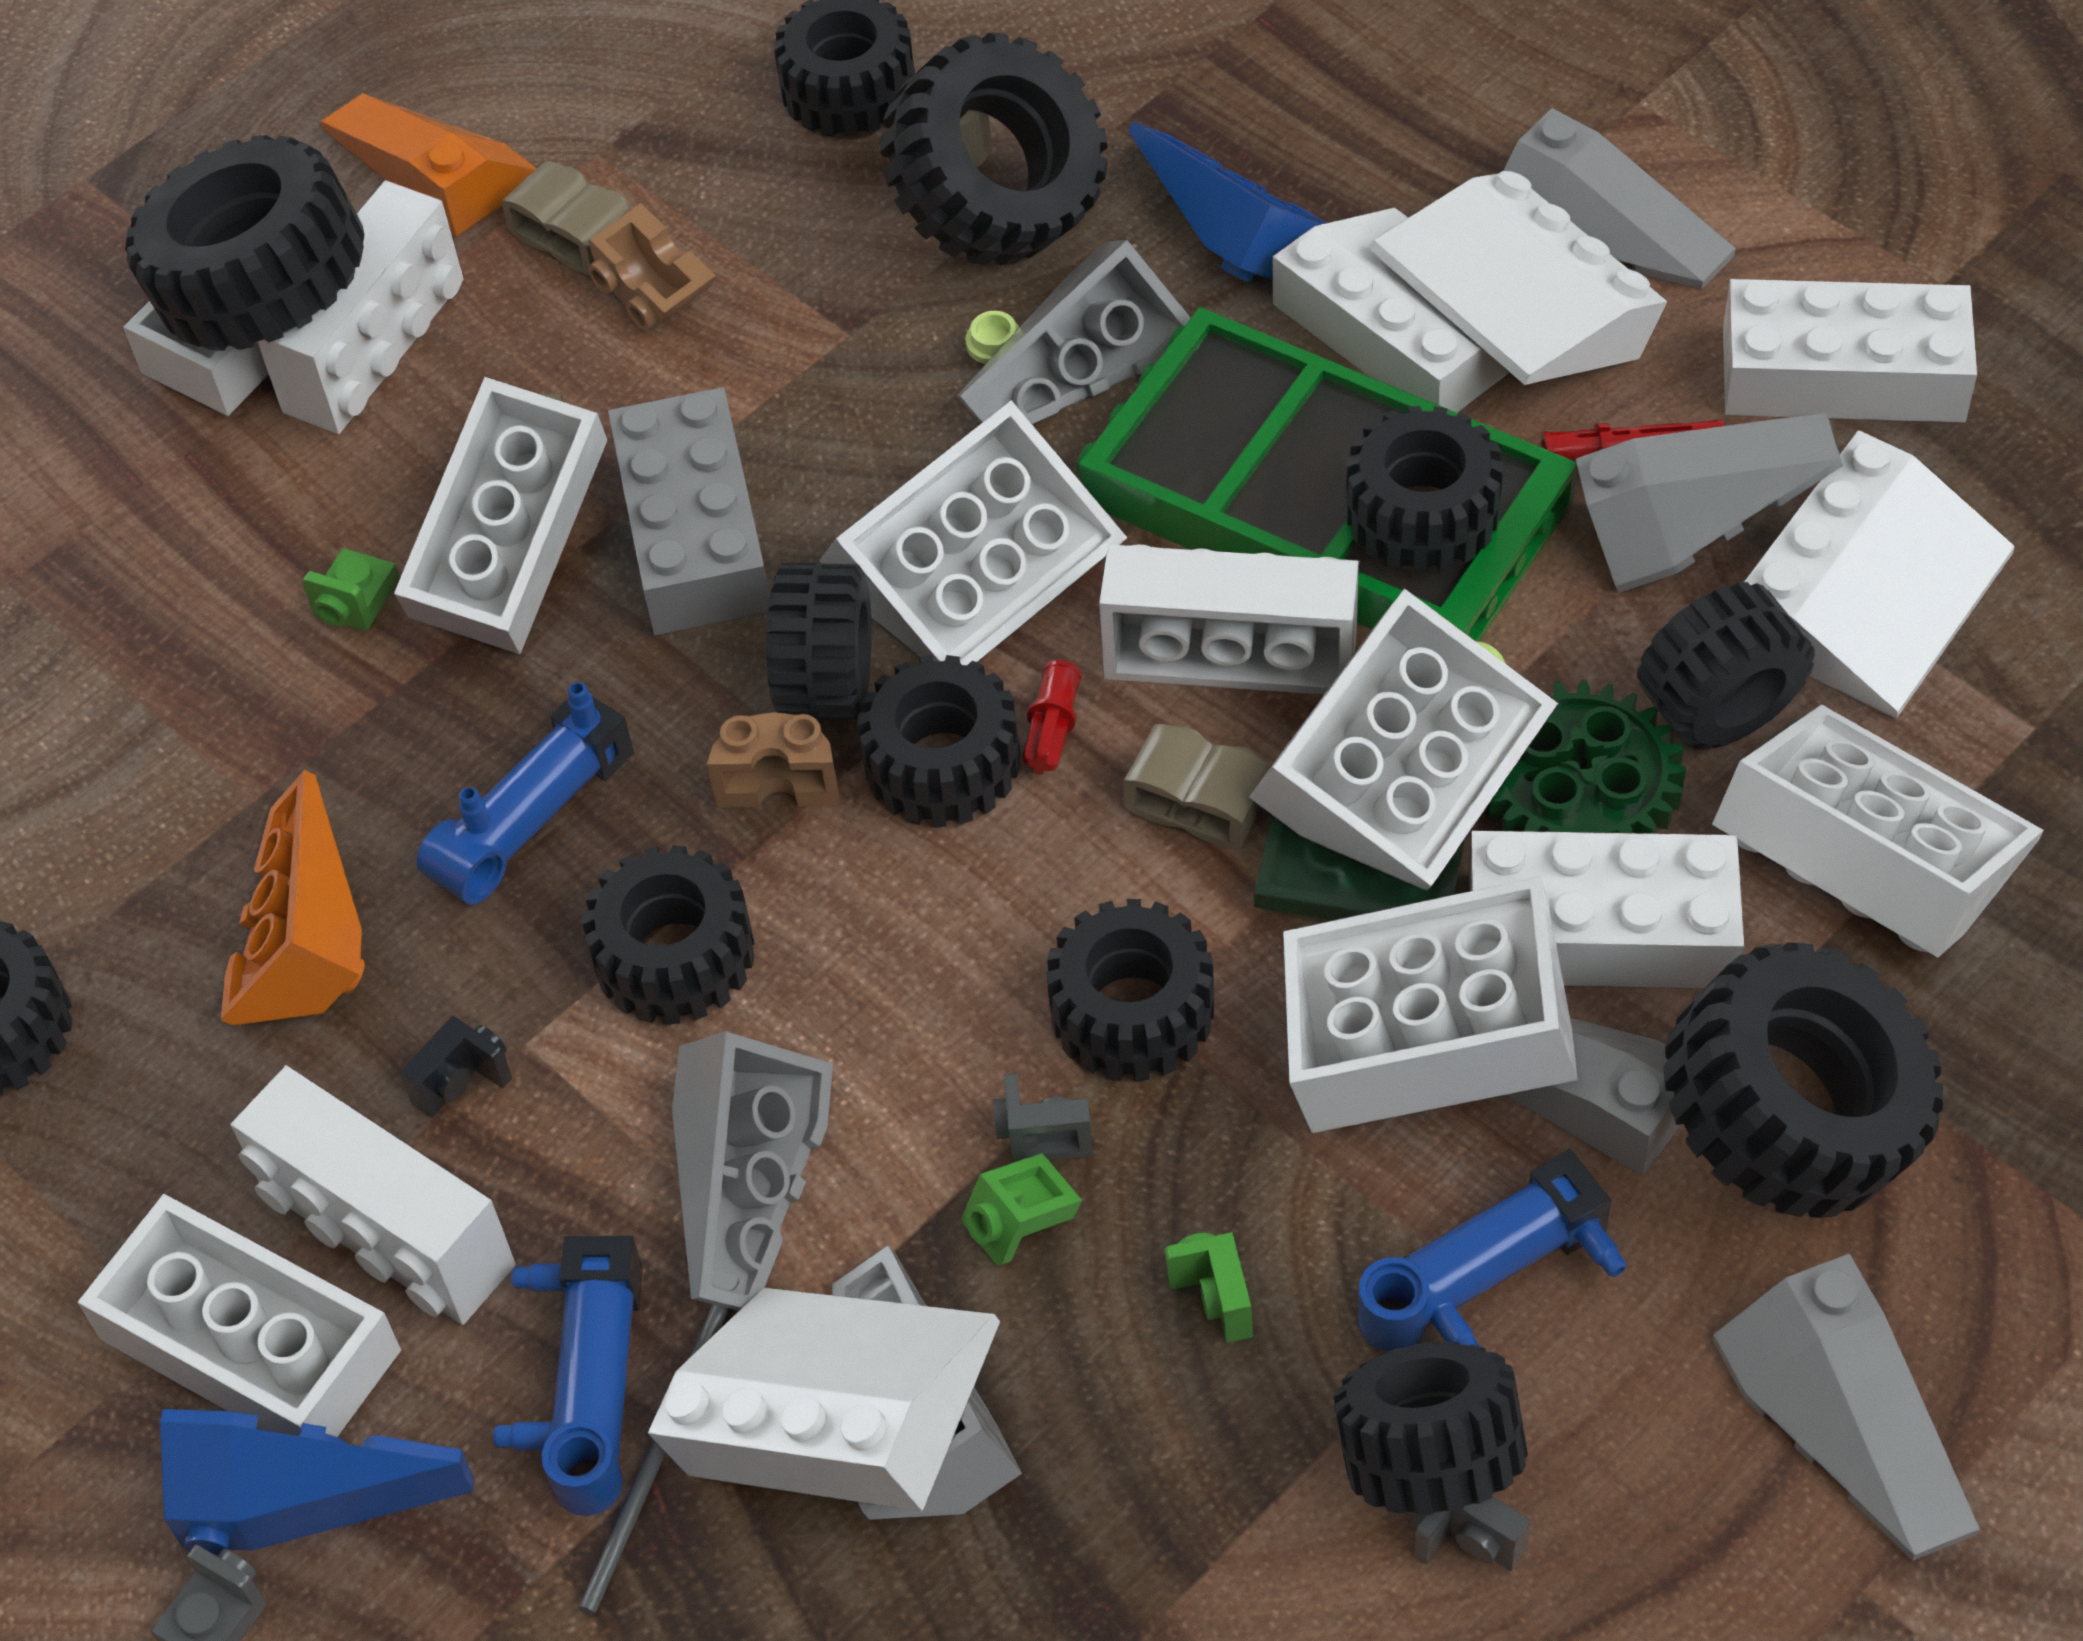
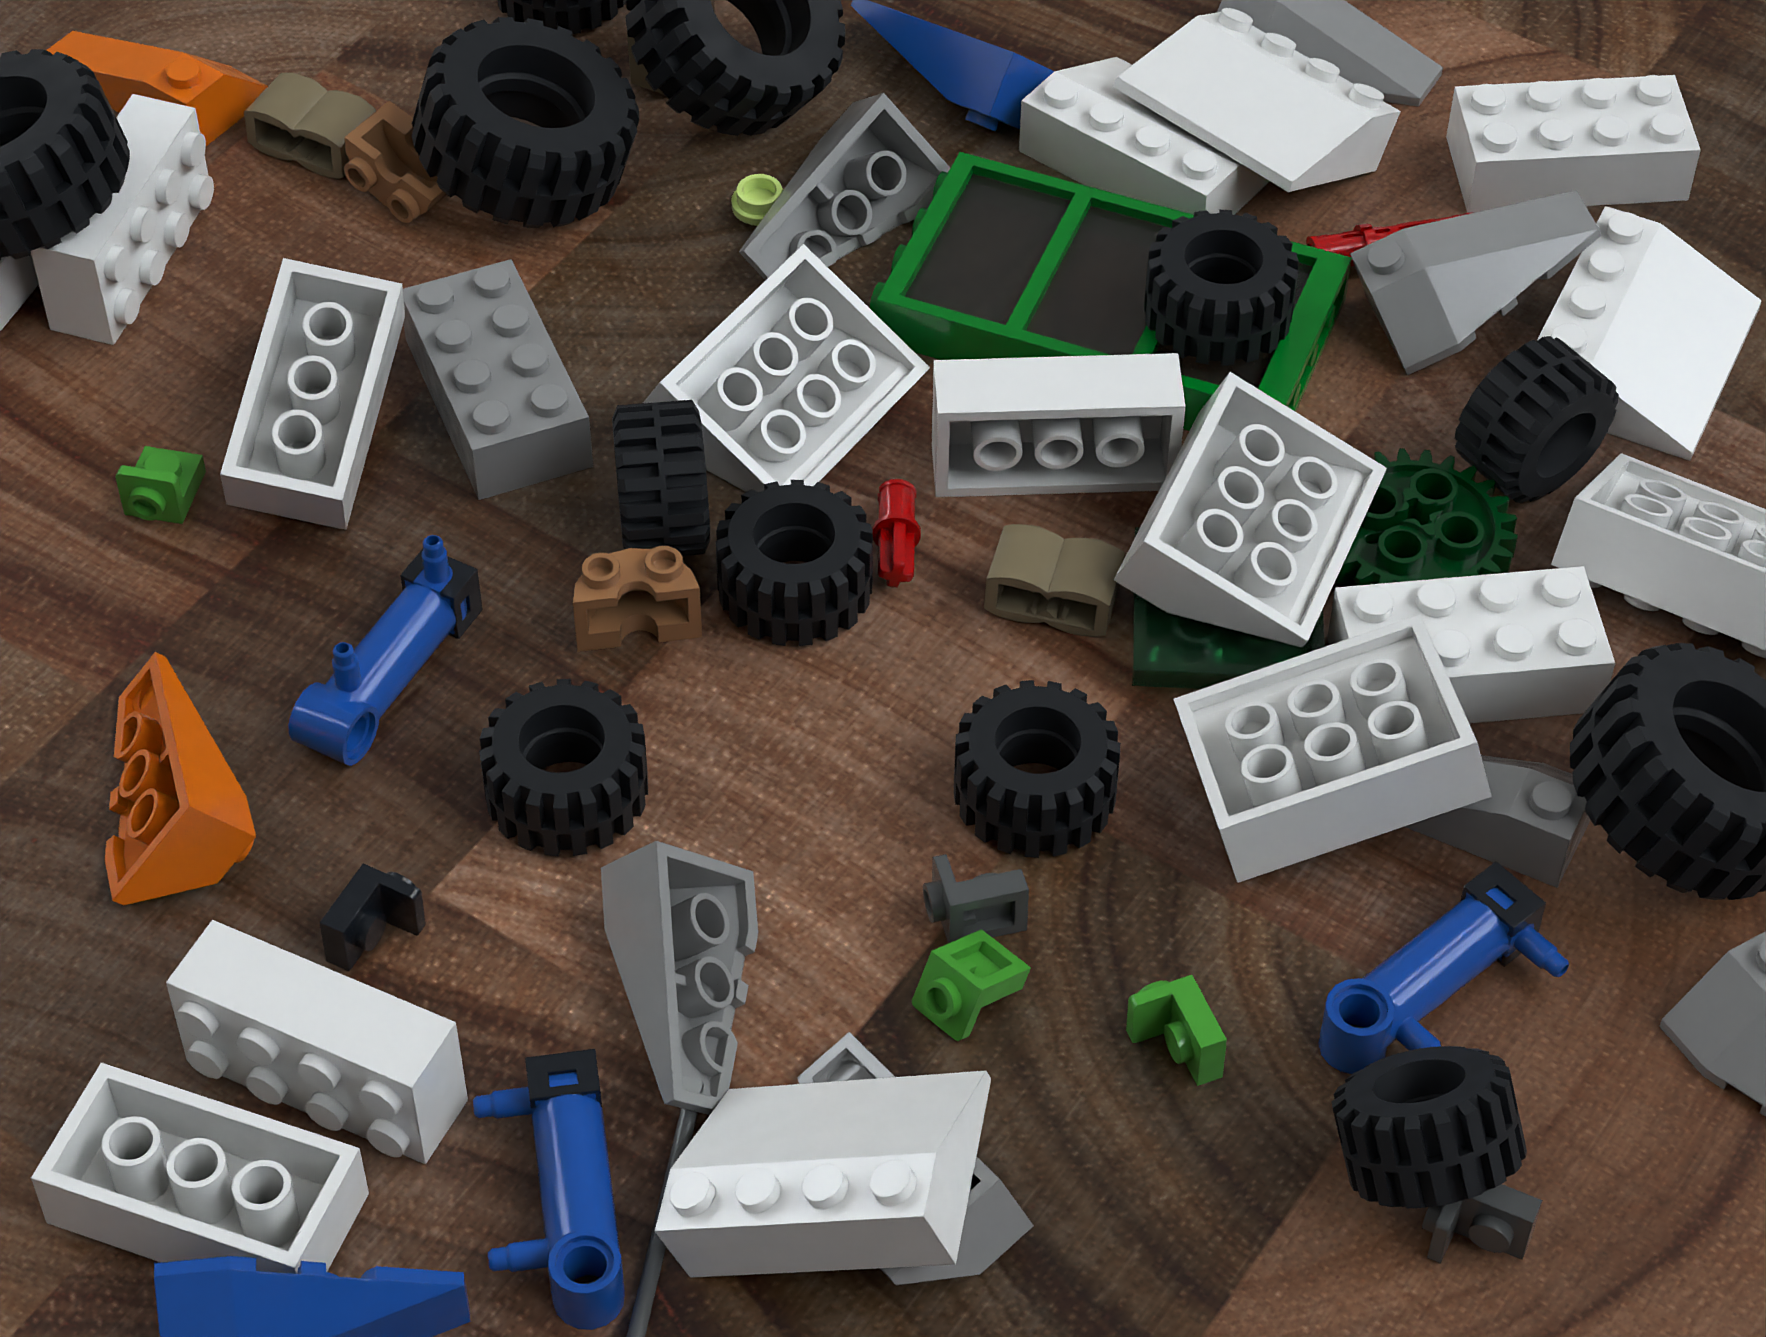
camera: 15 degrees left, 5 degrees down
(775, 186) = (510, 166): none -> black tyre

